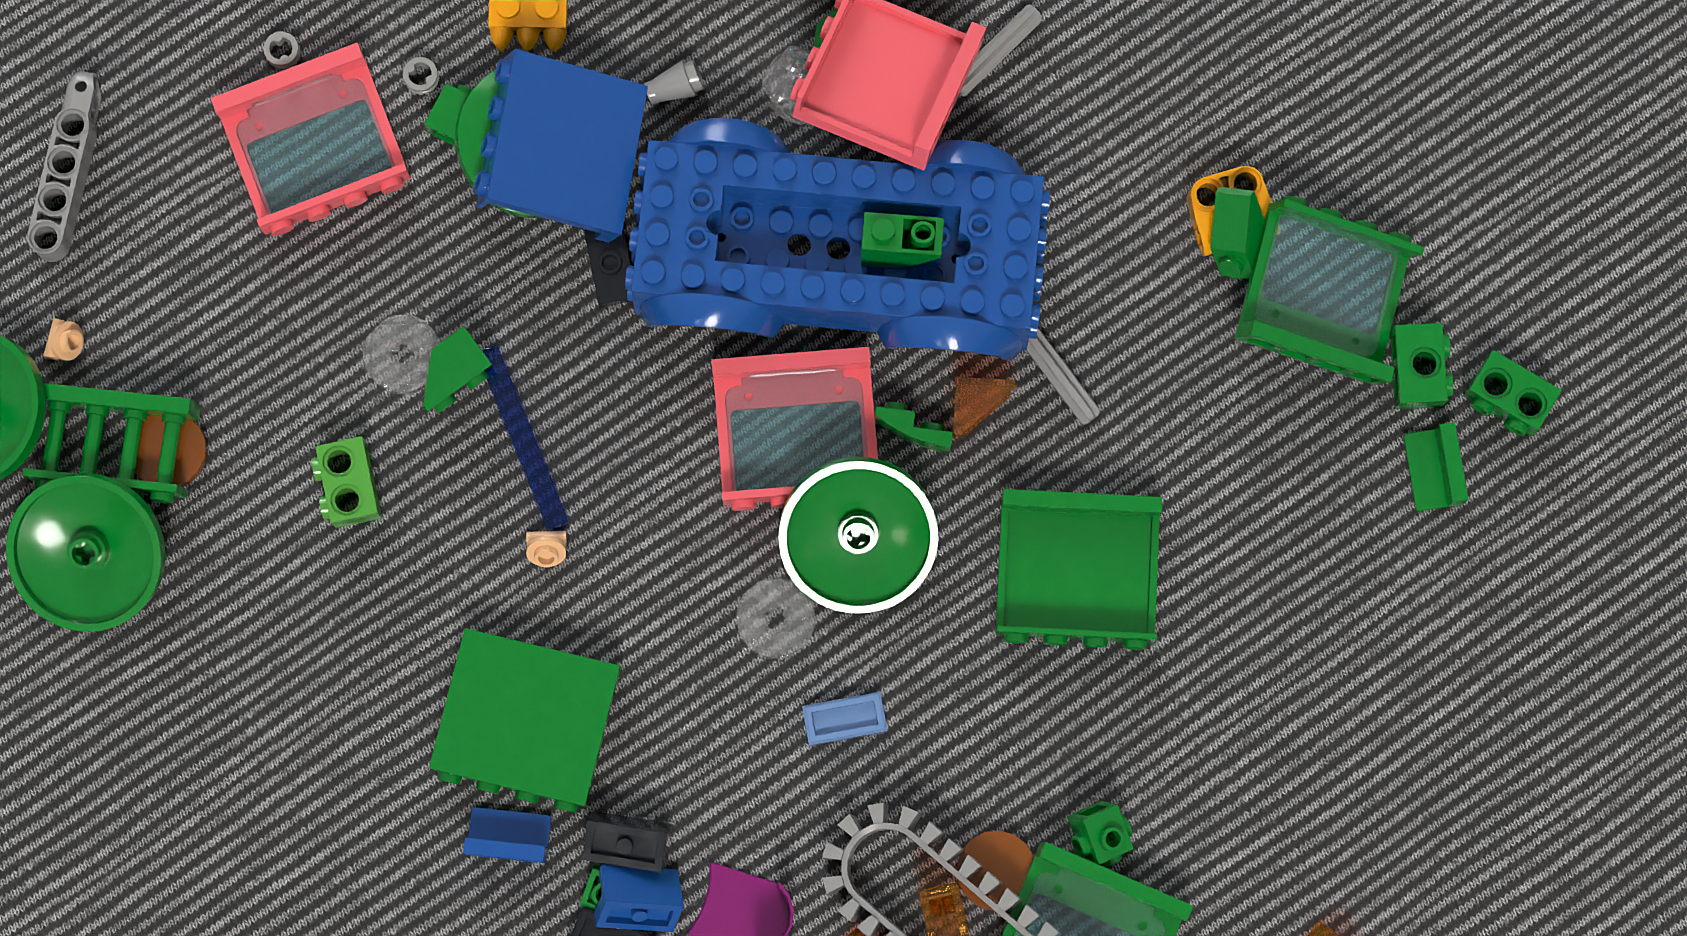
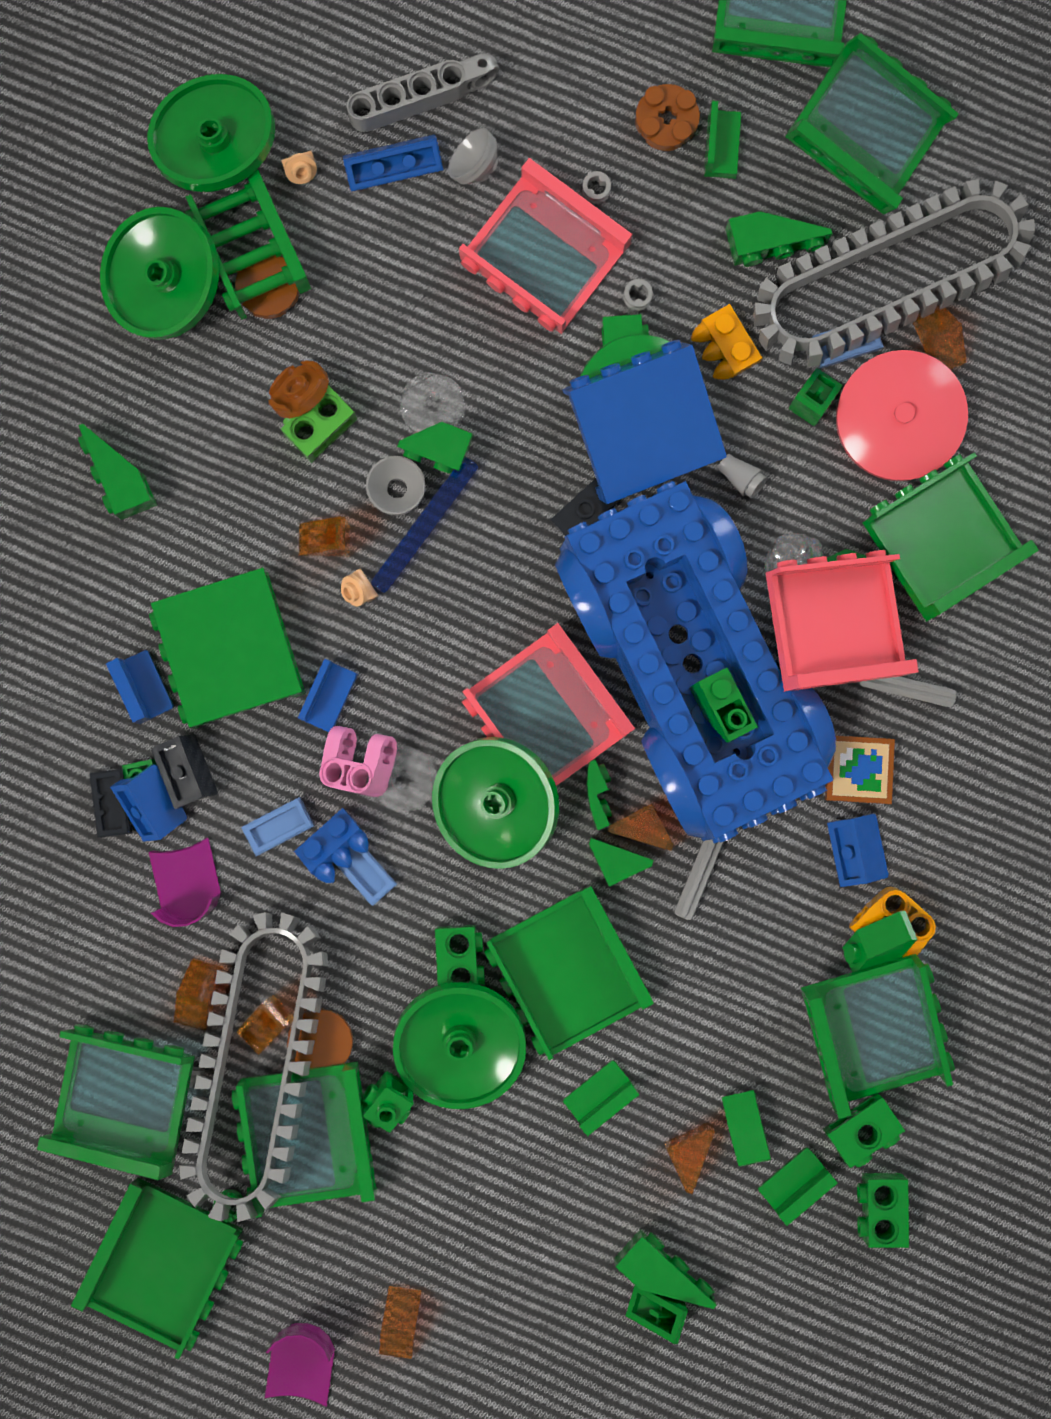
camera: 60 degrees right, 5 degrees up
(120, 242) = (393, 162): none -> blue slope
(172, 155) = (474, 158): none -> light grey piece
(276, 723) = (123, 483): none -> green slope
(300, 481) = (298, 389): none -> dark orange tile
(450, 427) = (393, 469): none -> light grey piece
(471, 549) = (325, 537): none -> clear orange slope
(641, 644) = (328, 695): none -> blue panel
(744, 631) = (339, 755): none -> bright pink piece
(744, 780) = (278, 826): none -> medium blue tile
(798, 733) = (332, 845): none -> blue plate
(992, 683) = (449, 960): none -> green brick
(994, 451) = (617, 863): none -> green slope
(1053, 146) = (861, 770): none -> tile
(1086, 723) = (459, 1045): none -> green dish
(1131, 200) = (858, 850): none -> blue panel
(1227, 613) = (600, 1097): none -> green panel
(1339, 558) = (689, 1153): none -> clear orange slope
(1347, 483) = (746, 1128): none -> green slope
(1435, 664) = (658, 1273): none -> green slope
(1480, 686) = (658, 1314): none -> green slope

